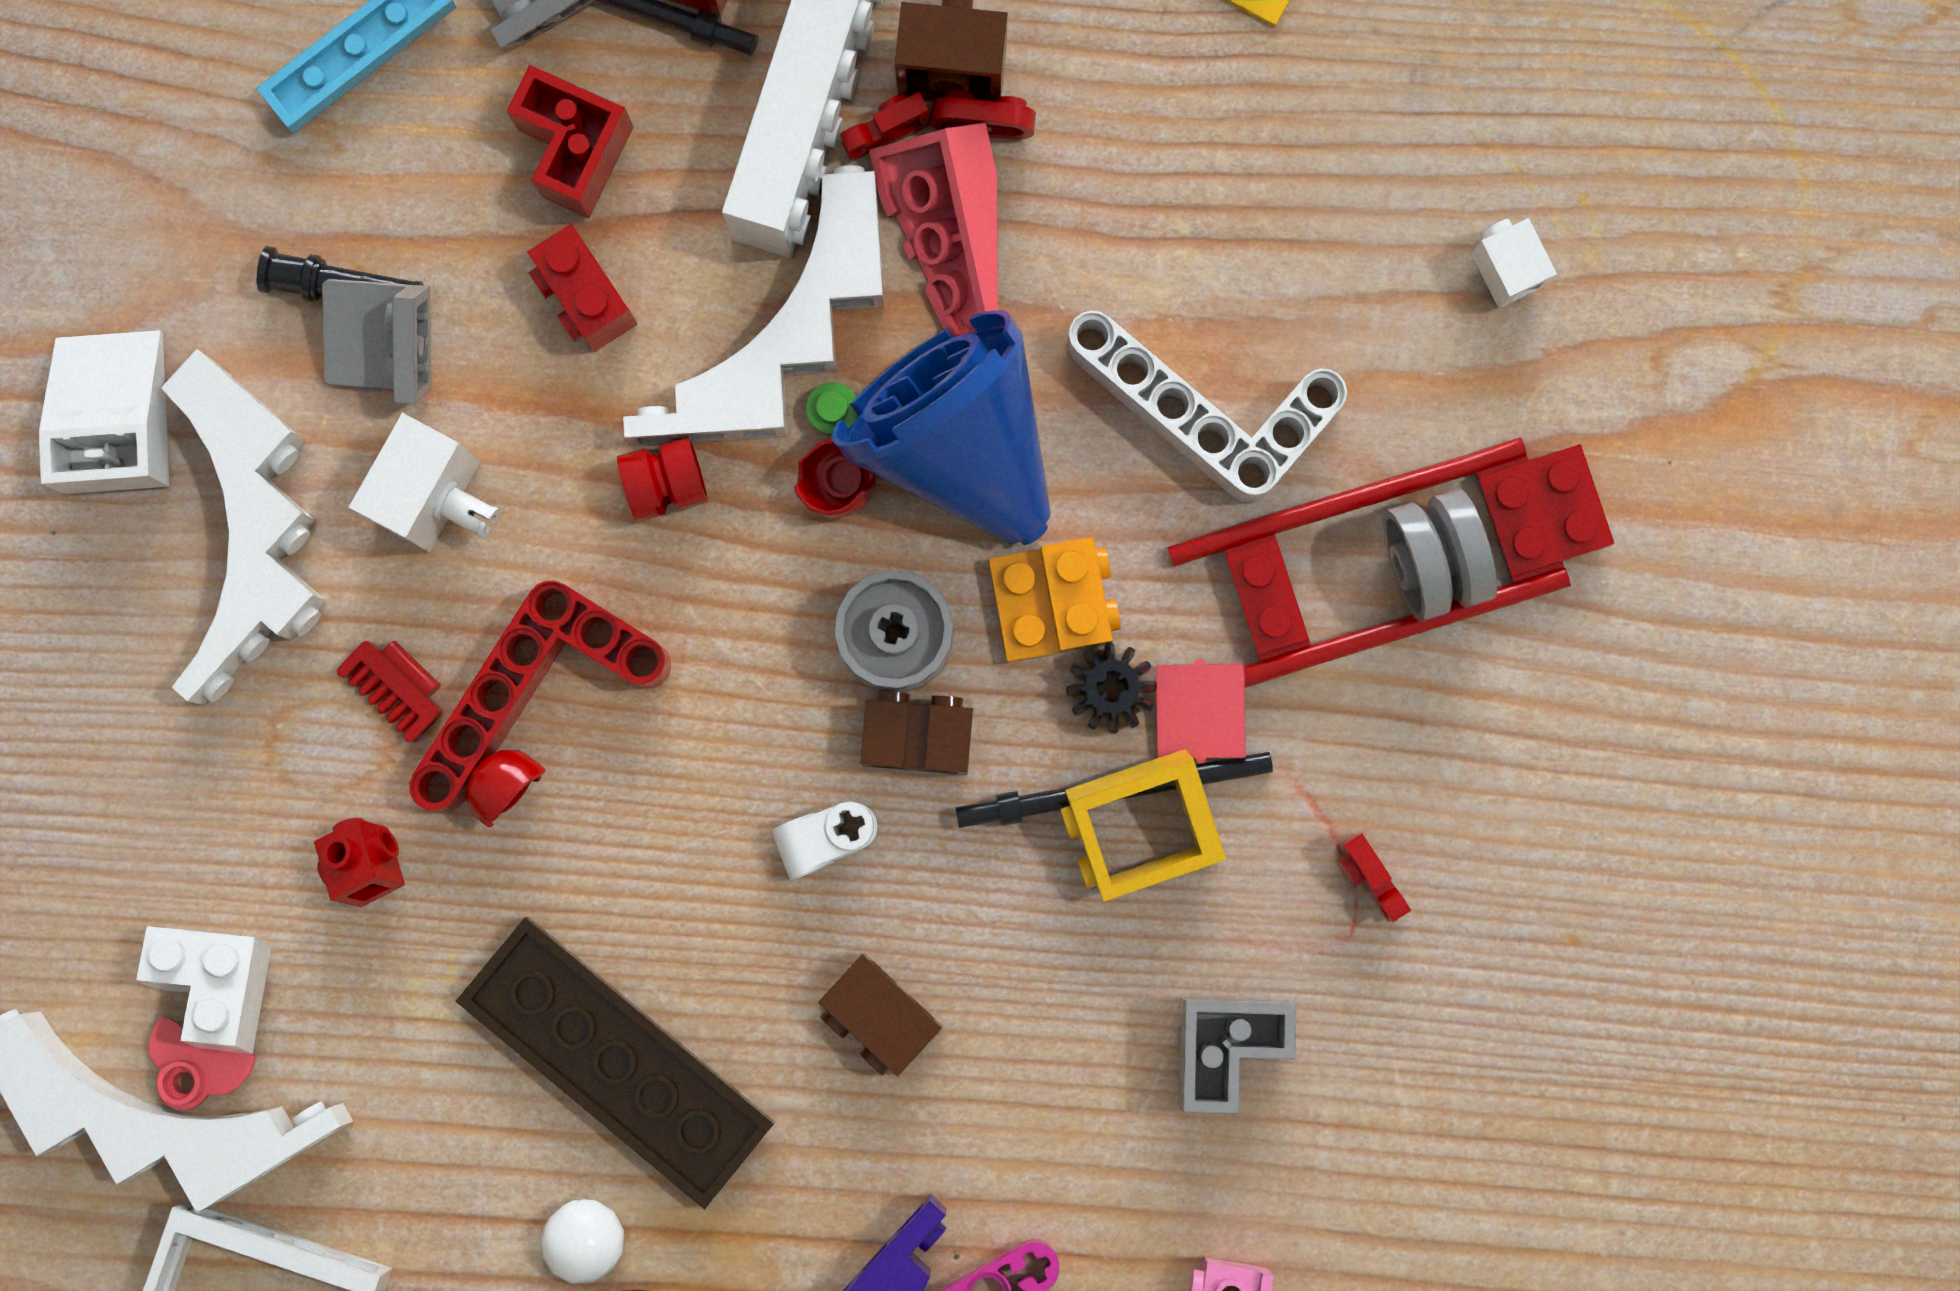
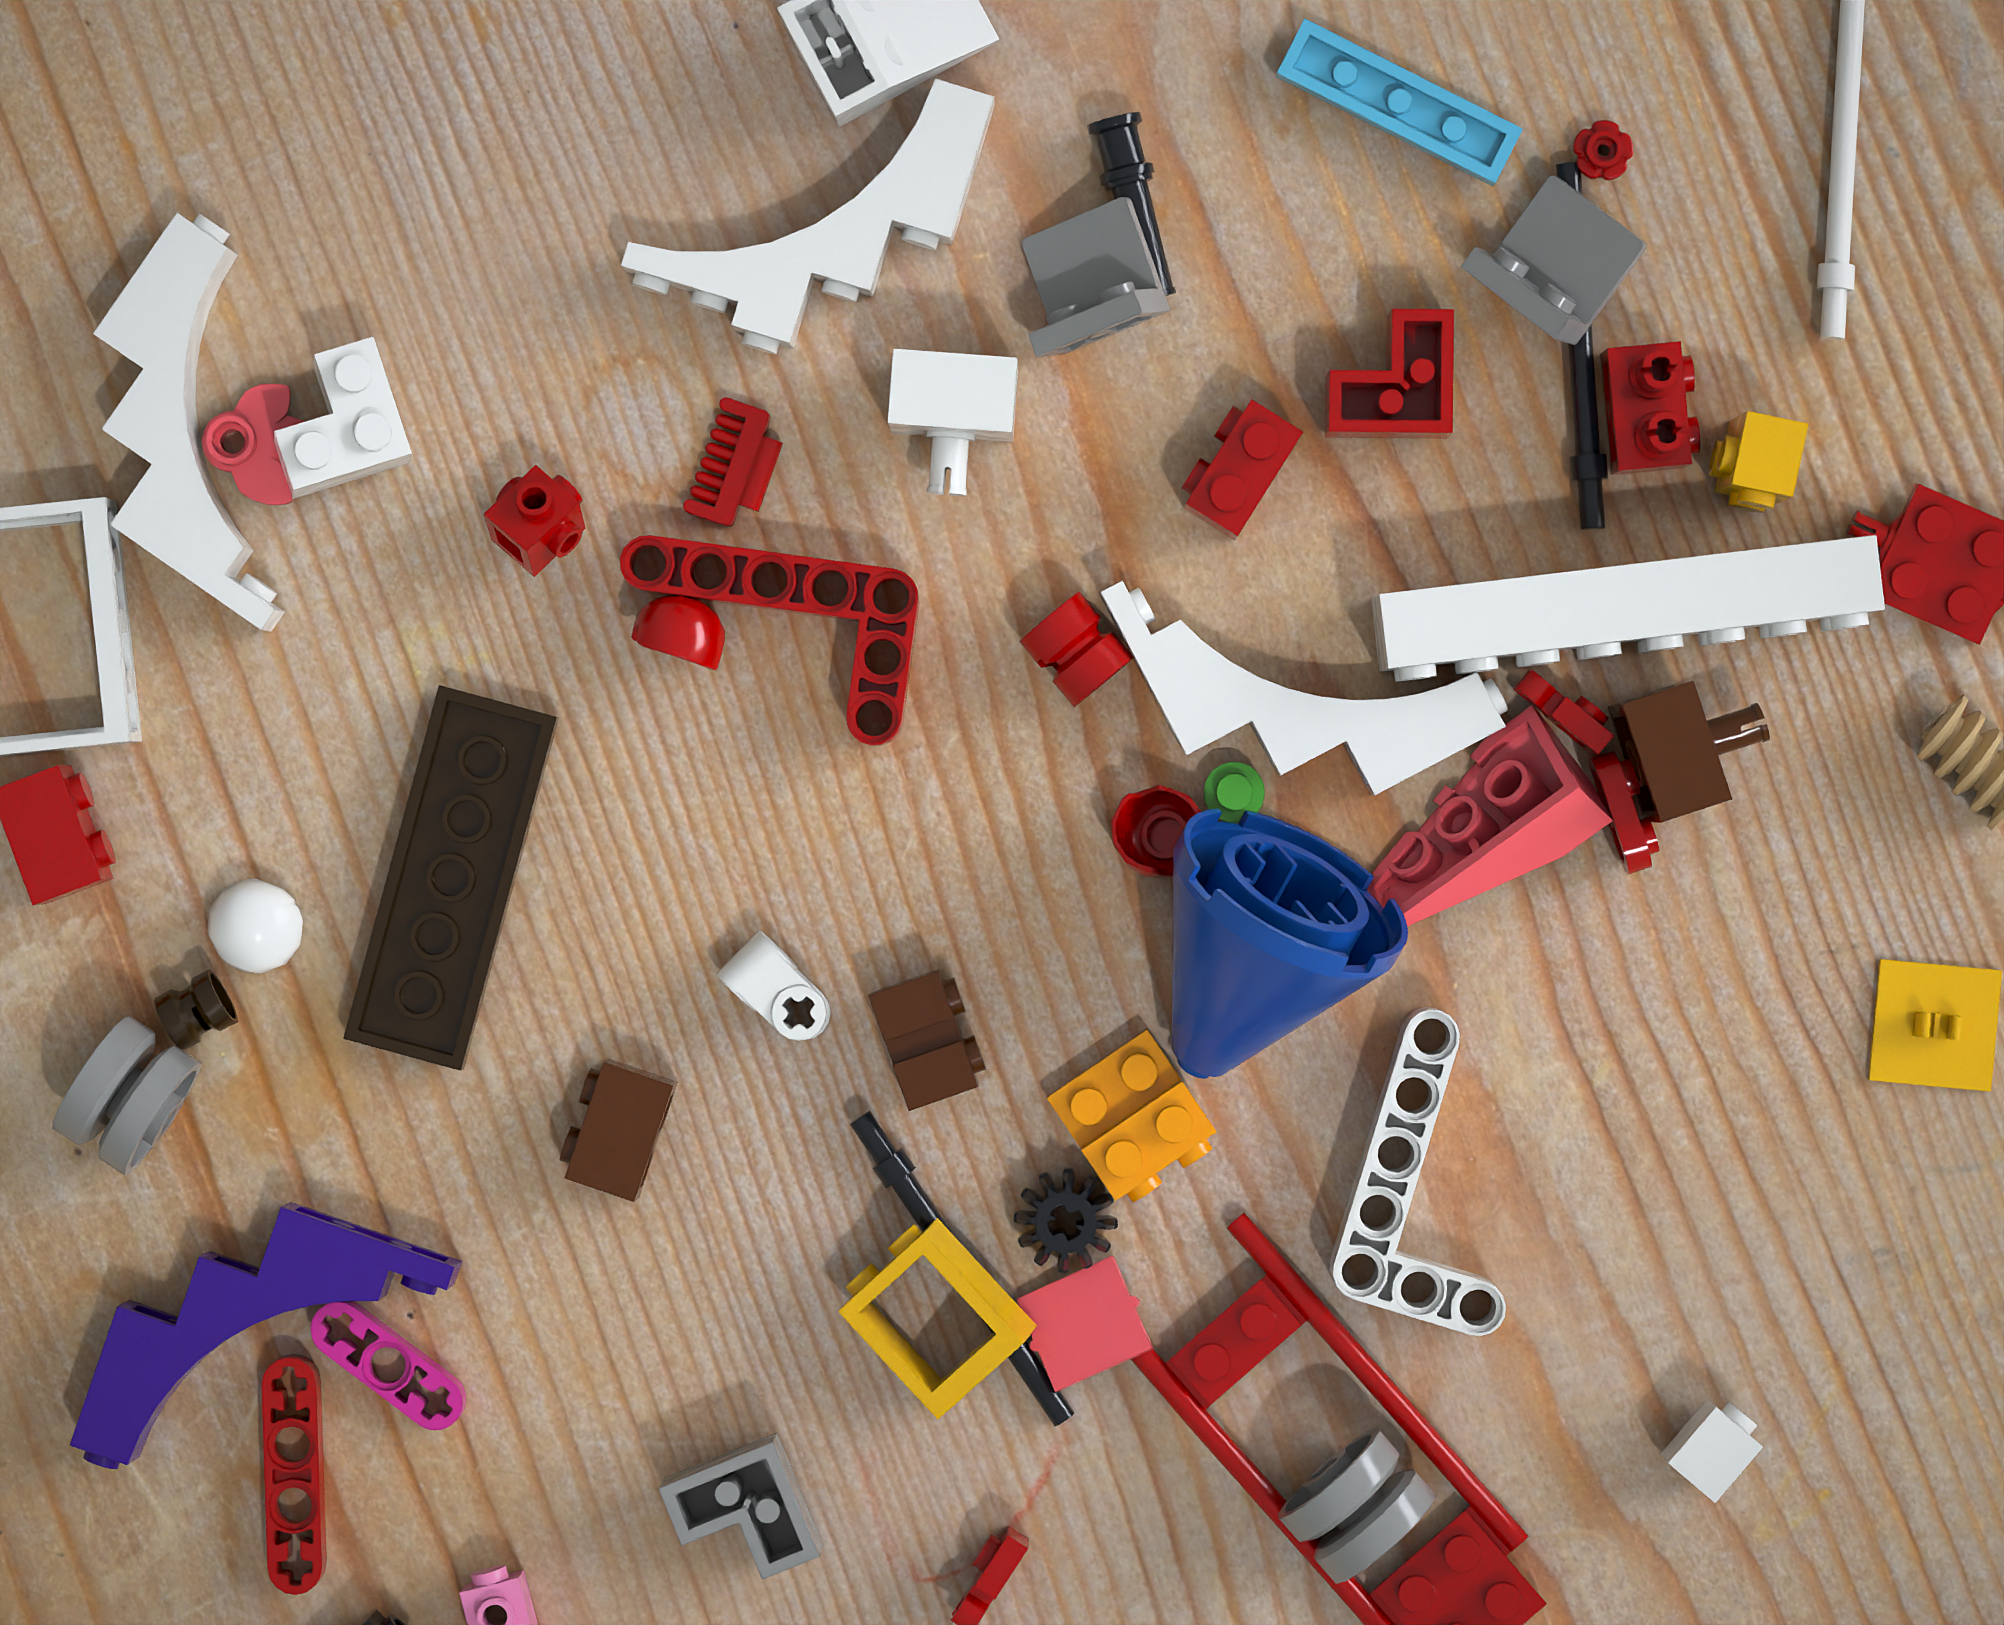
camera: 70 degrees right, 5 degrees up
(887, 601) = (1016, 1004): light grey wheel -> none

